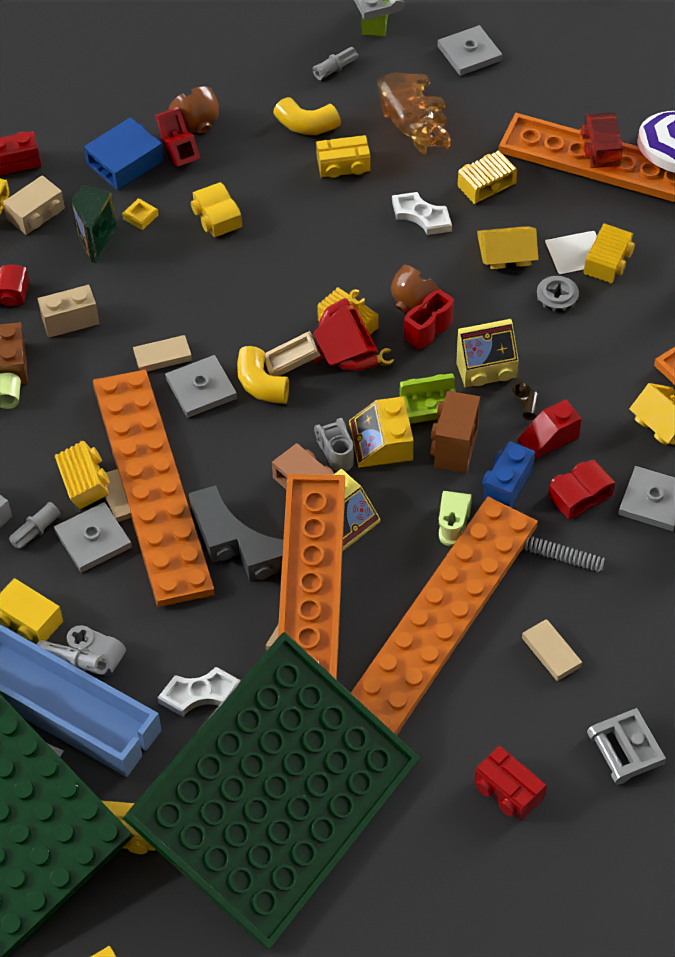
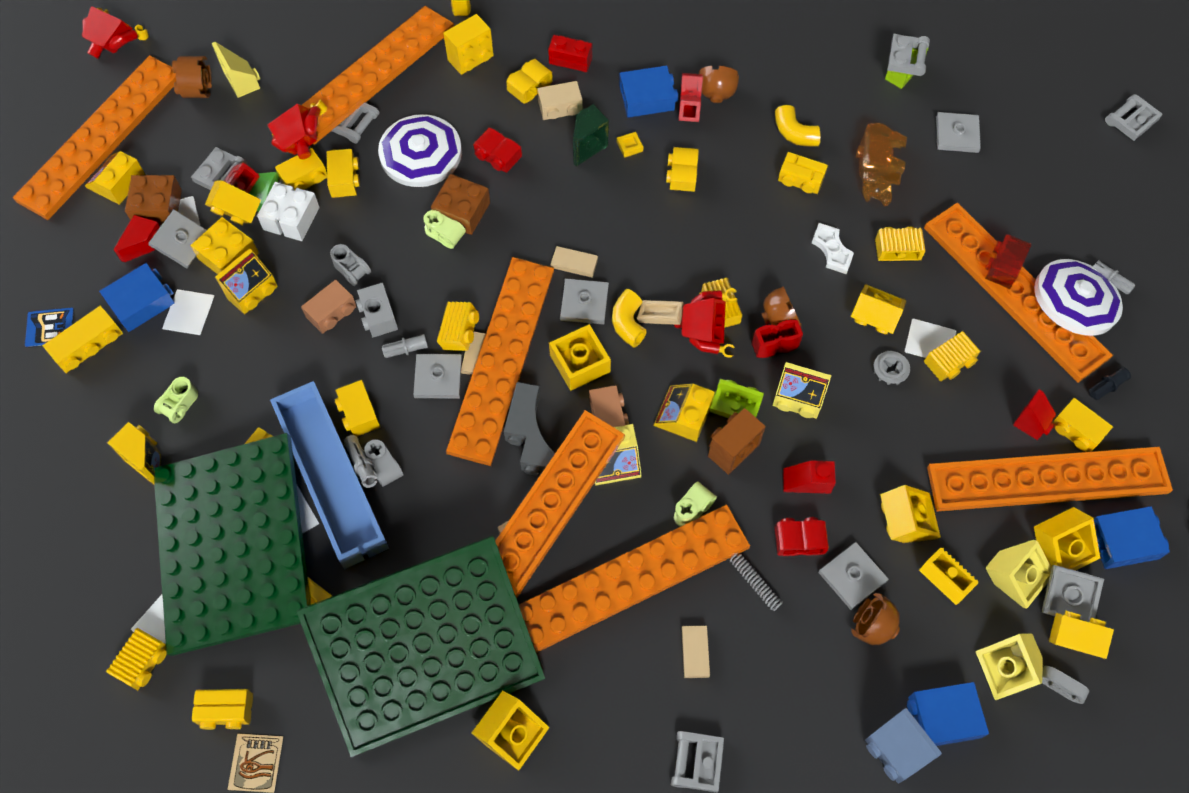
camera: 30 degrees right, 10 degrees up
(68, 311) = (529, 195): tan brick -> none
(185, 693) = (442, 537): white tile -> none
(238, 437) = (580, 357): none -> yellow brick
(335, 63) = (847, 93): light grey axle -> none
(336, 445) = (647, 397): light grey piece -> none
(419, 824) = (510, 730): none -> yellow slope
(509, 474) = (753, 496): blue brick -> none
(509, 783) = (593, 738): red brick -> none
(528, 398) = (812, 441): dark brown arm -> none

